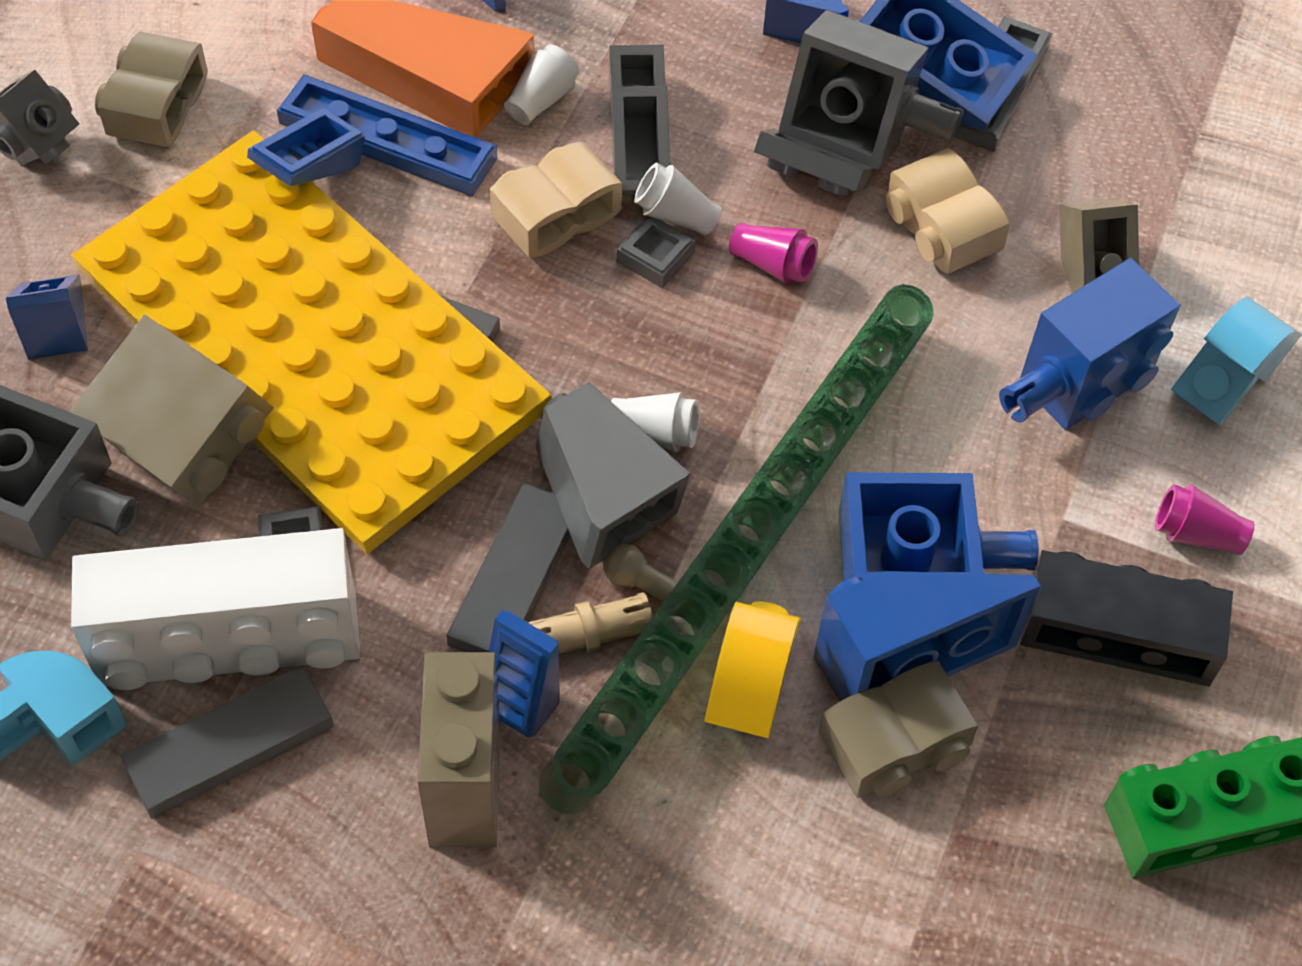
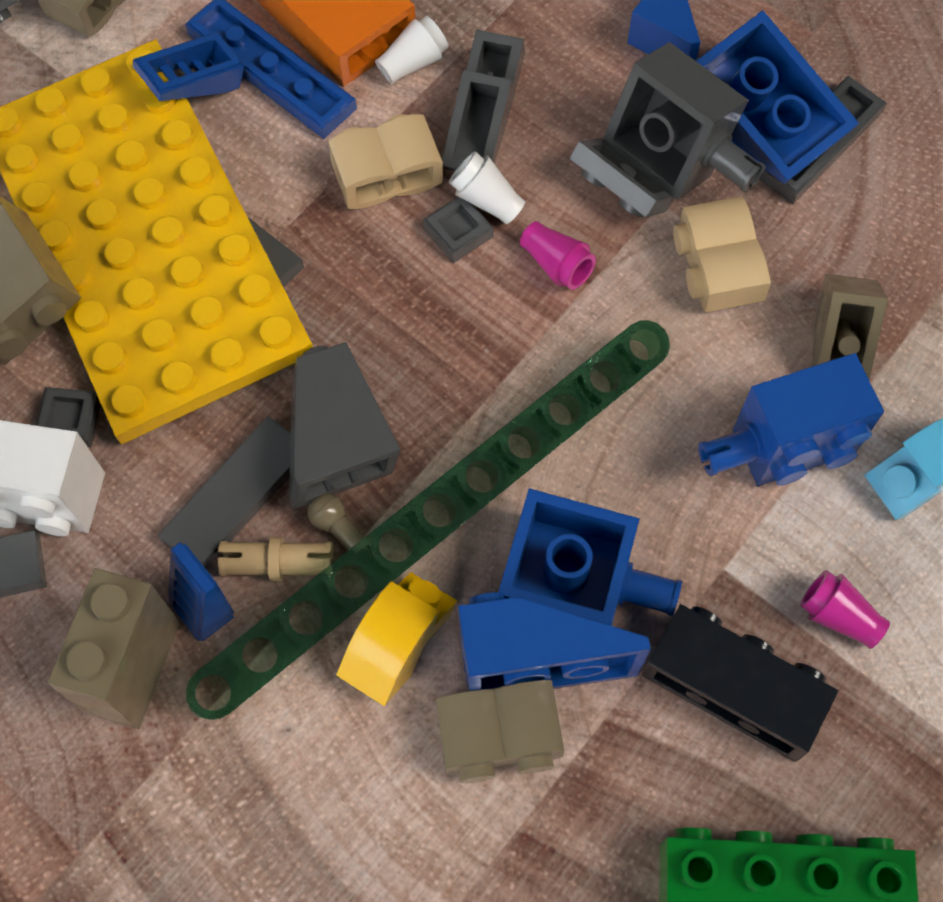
camera: 20 degrees right, 10 degrees up
(665, 418) = (401, 388): white cone -> none

